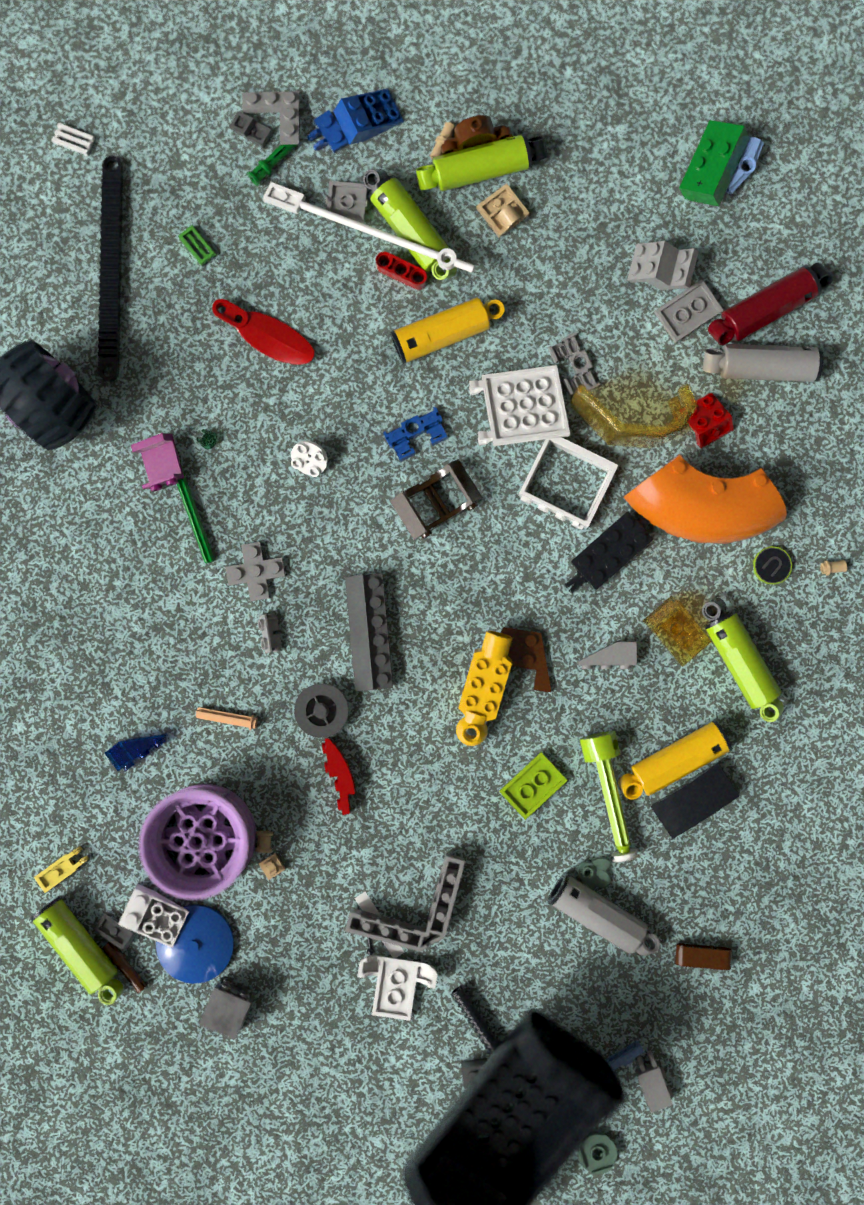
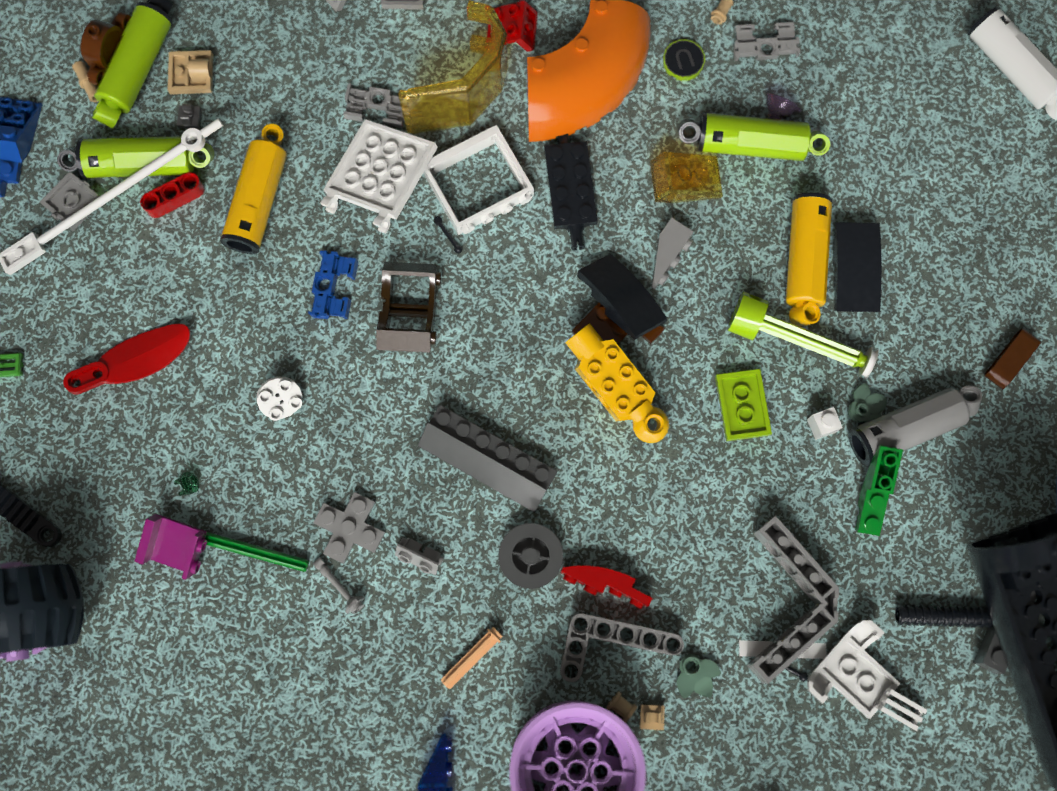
camera: 55 degrees left, 10 degrees down
(206, 612) = (354, 604): none -> light grey piece
(306, 804) = (614, 637): none -> light grey beam
(320, 881) = (697, 679): none -> sand green plate
(394, 1045) = (915, 716): none -> white tile
(468, 236) = (189, 116): none -> flat silver tile
(517, 473) = (438, 221): none -> black hinge
(534, 920) = (876, 488): none -> green slope
(551, 646) = (623, 296): none -> black slope
(559, 852) = (824, 423): none -> white brick
(782, 663) = (780, 107): none -> clear purple piece
(816, 608) = (749, 48): none -> light grey piece

